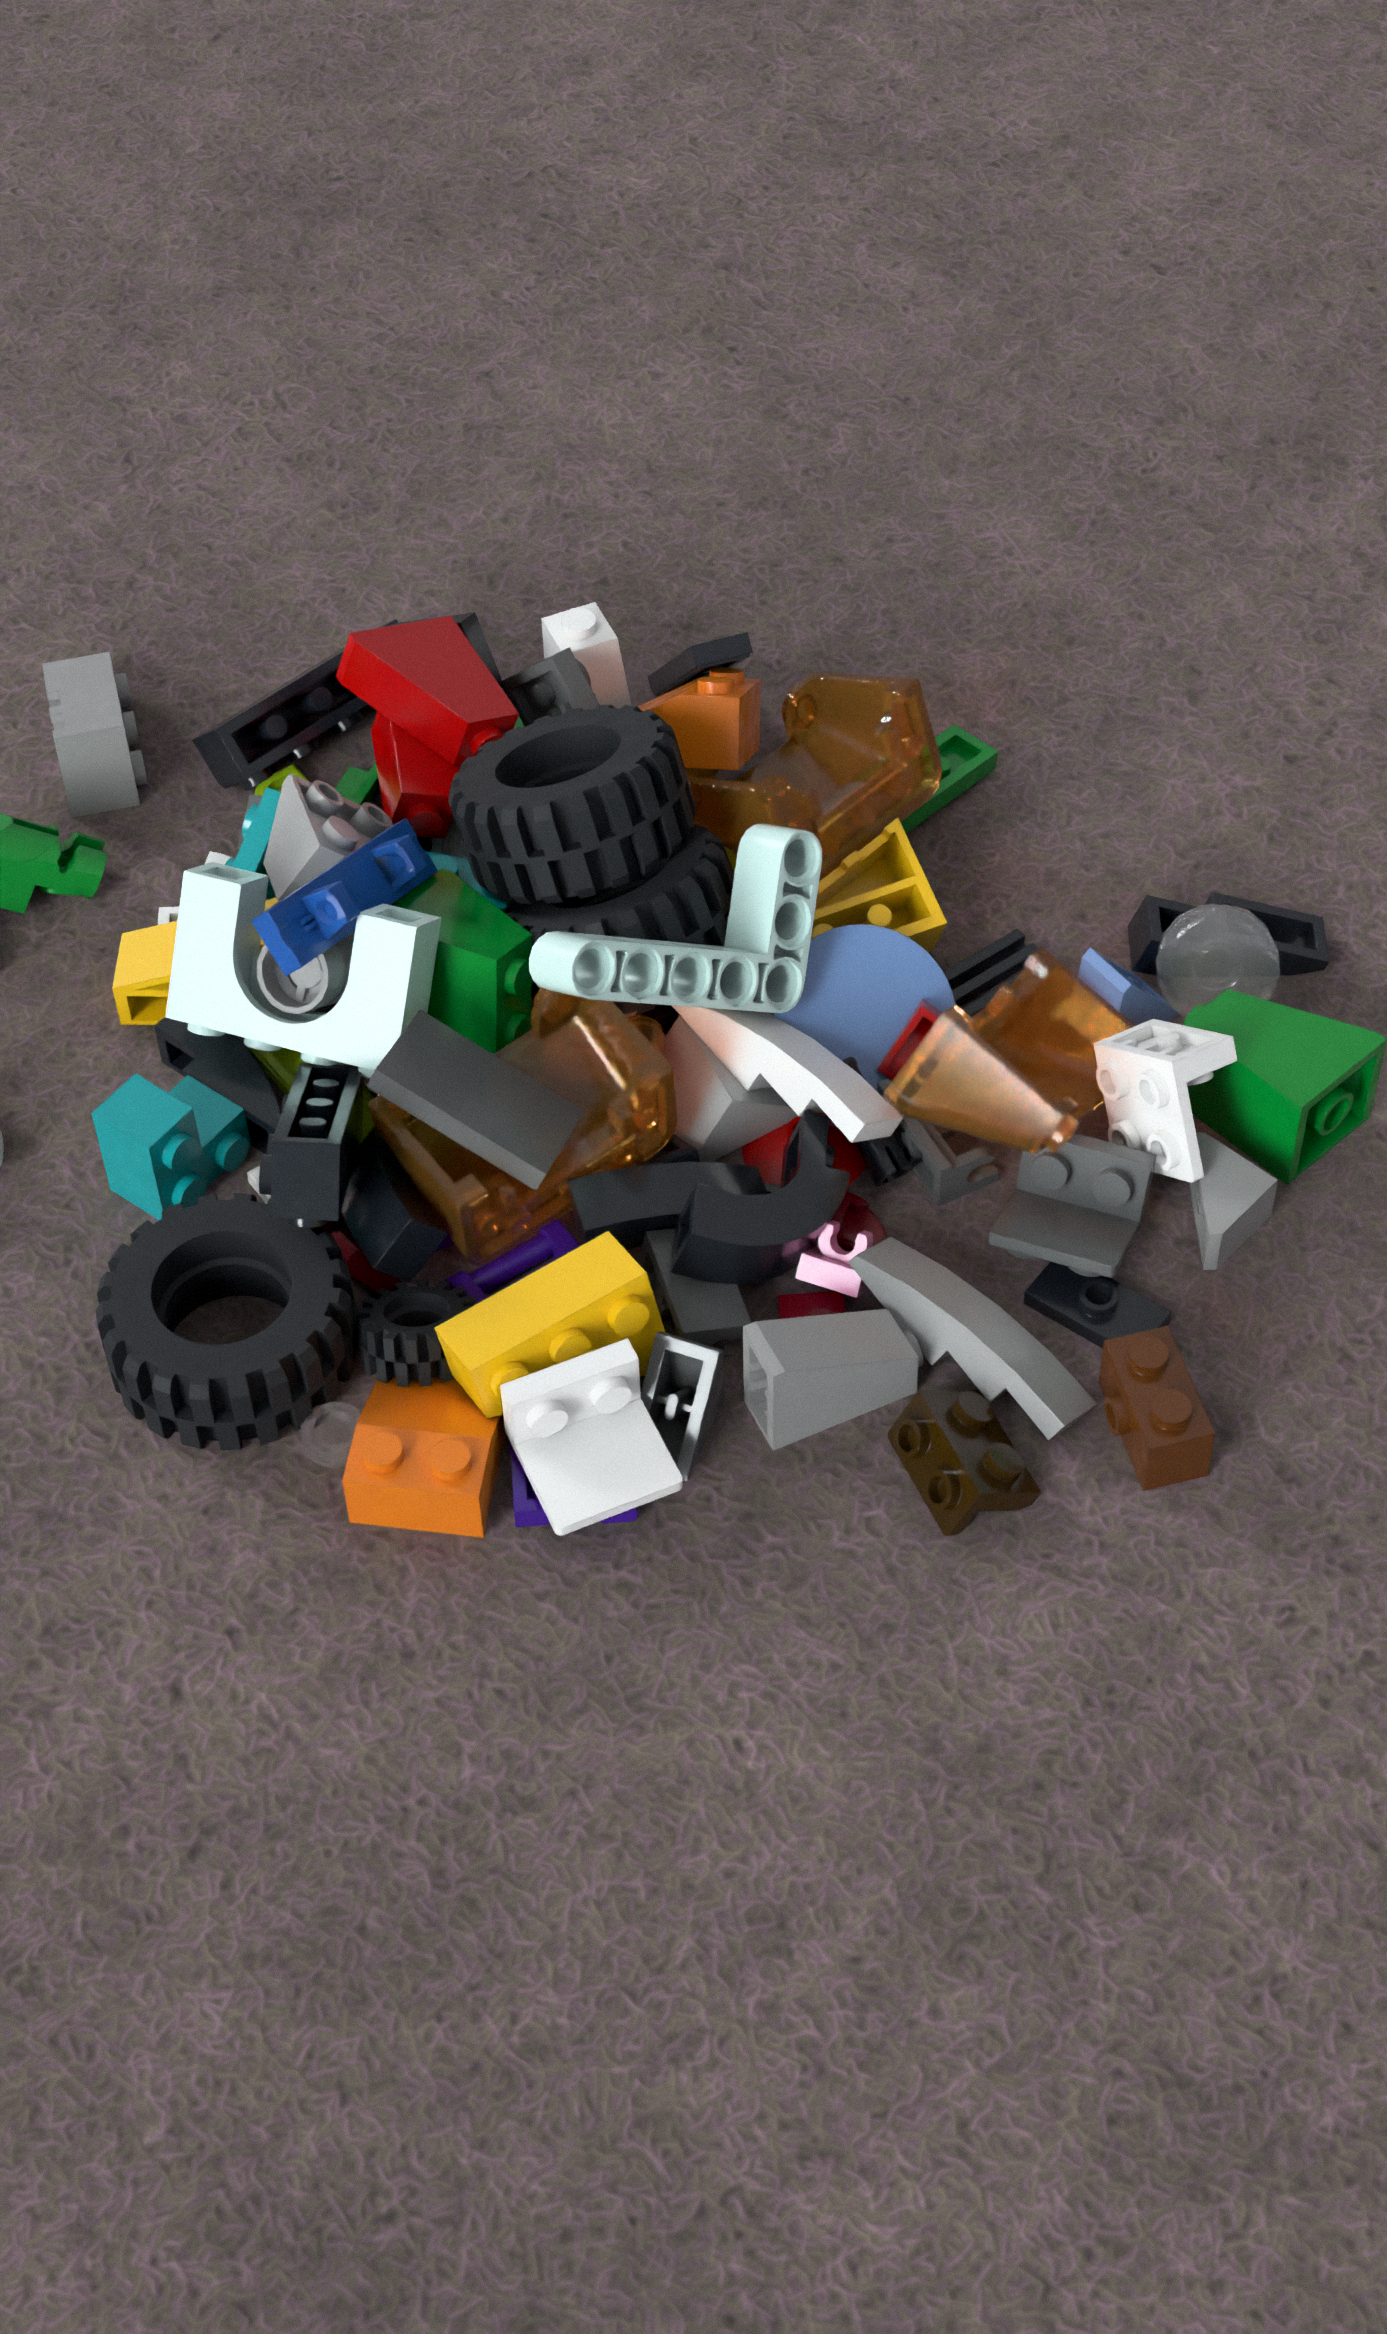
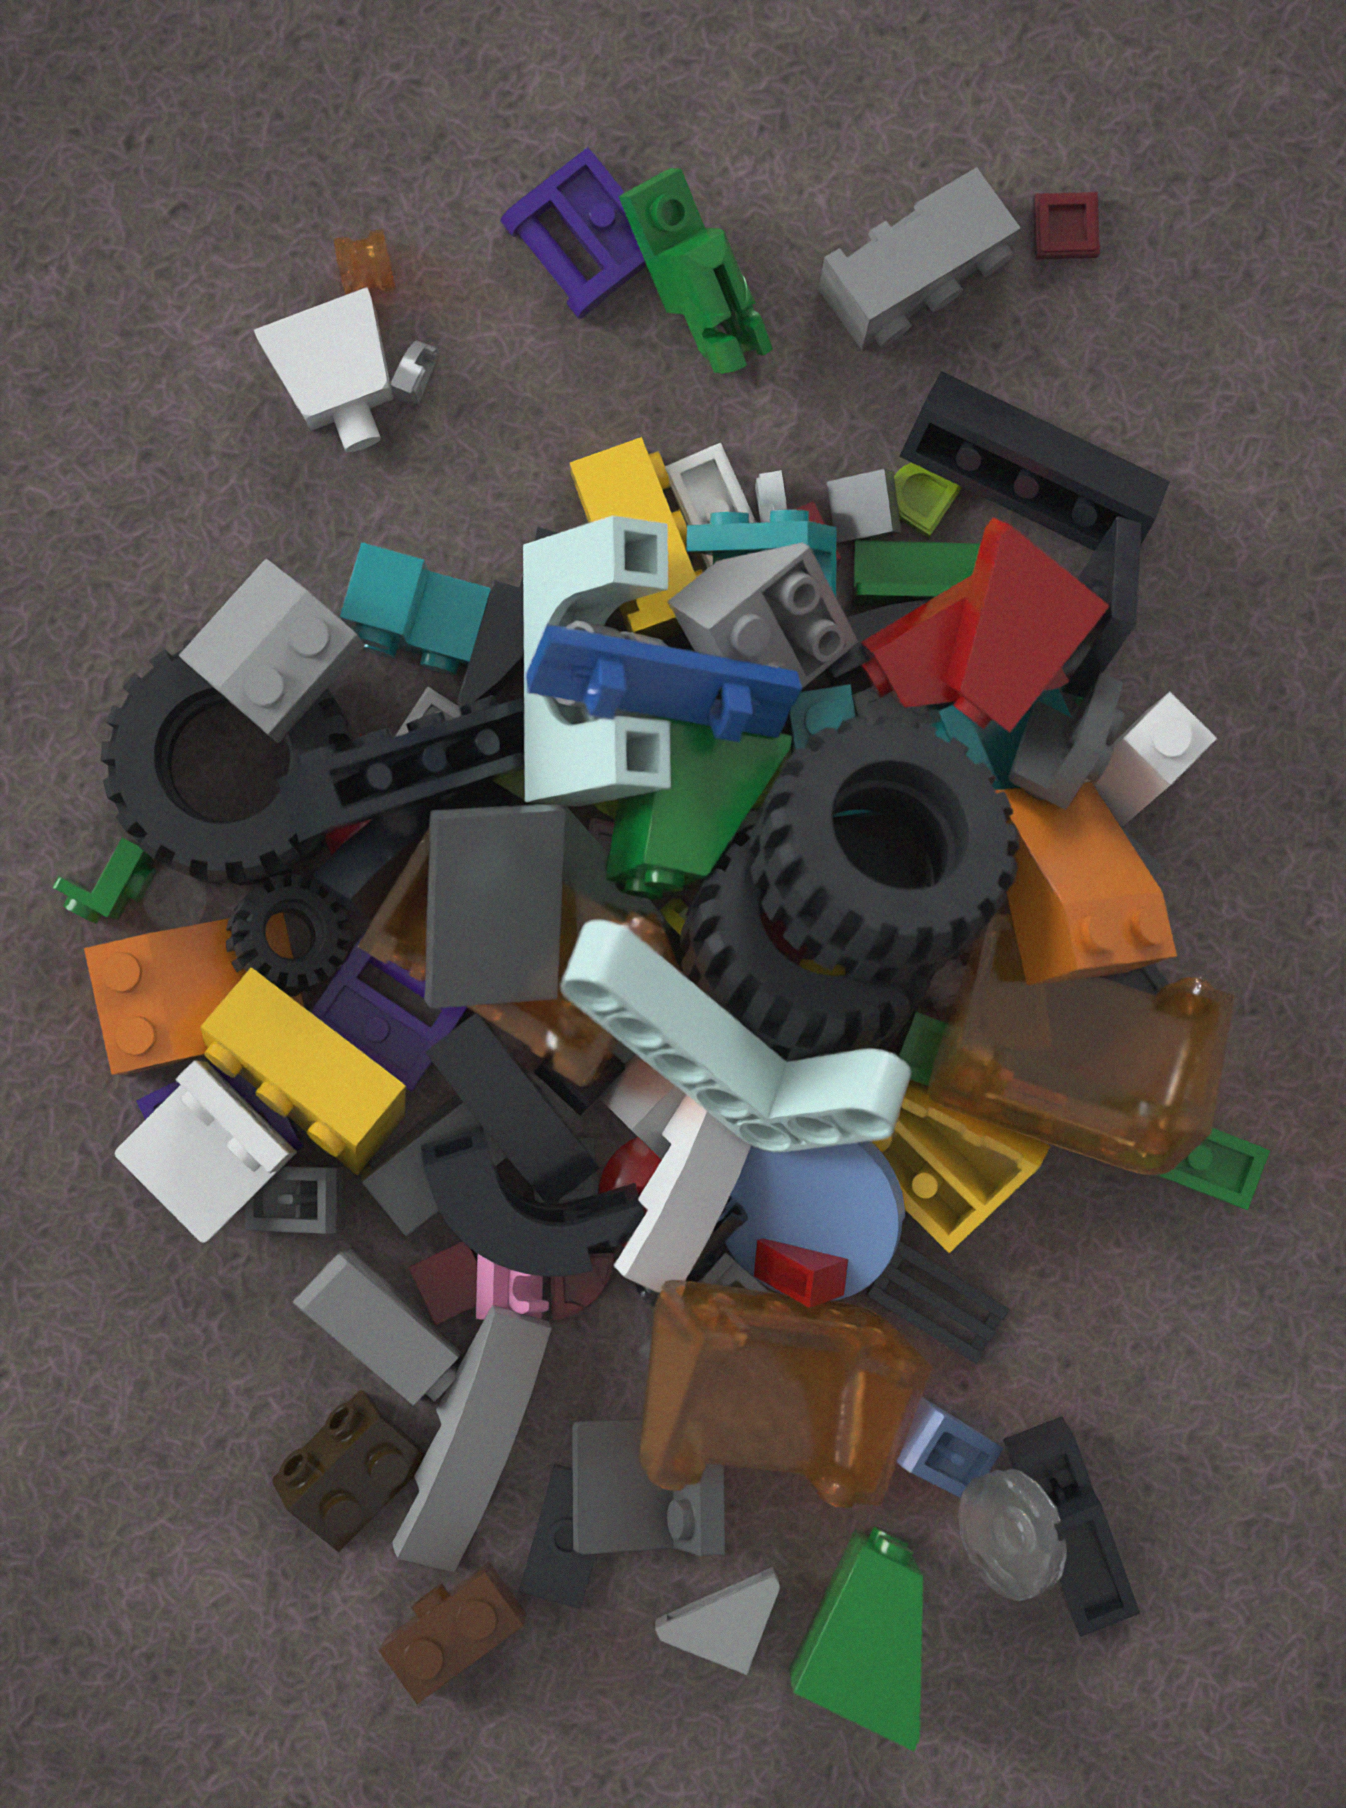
camera: 65 degrees right, 35 degrees up
(129, 648) = (1066, 225): none -> dark red tile
(148, 1197) = (272, 649): none -> light grey slope
(298, 1468) = (123, 879): none -> green bracket
(698, 660) = (1200, 872): black tile -> none
(1147, 1092) = (799, 1538): white bracket -> none

